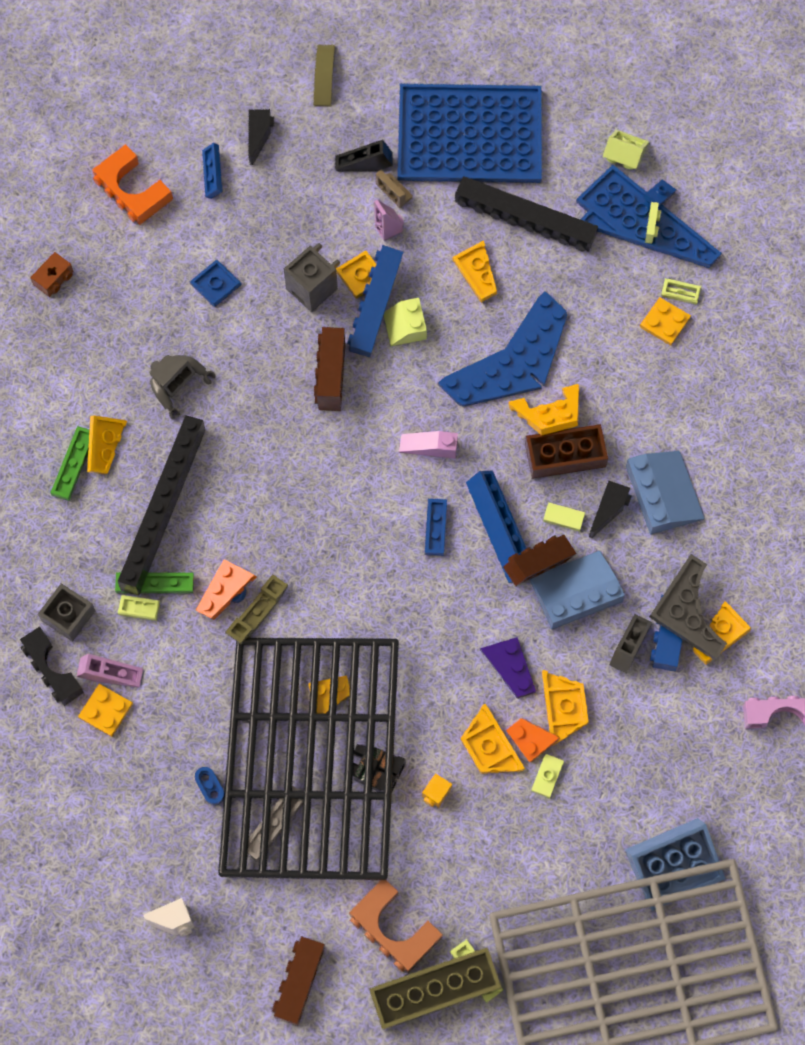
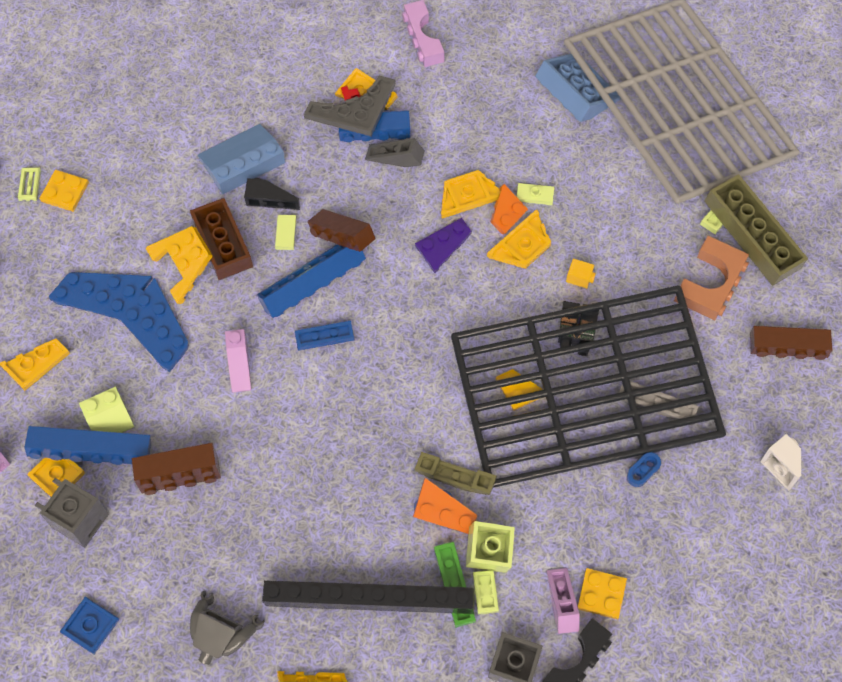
camera: 105 degrees left, 5 degrees down
(174, 618) = (490, 547): none -> yellowish green brick
(577, 589) = (357, 197): medium blue slope -> none
(711, 610) = (349, 94): none -> red tile

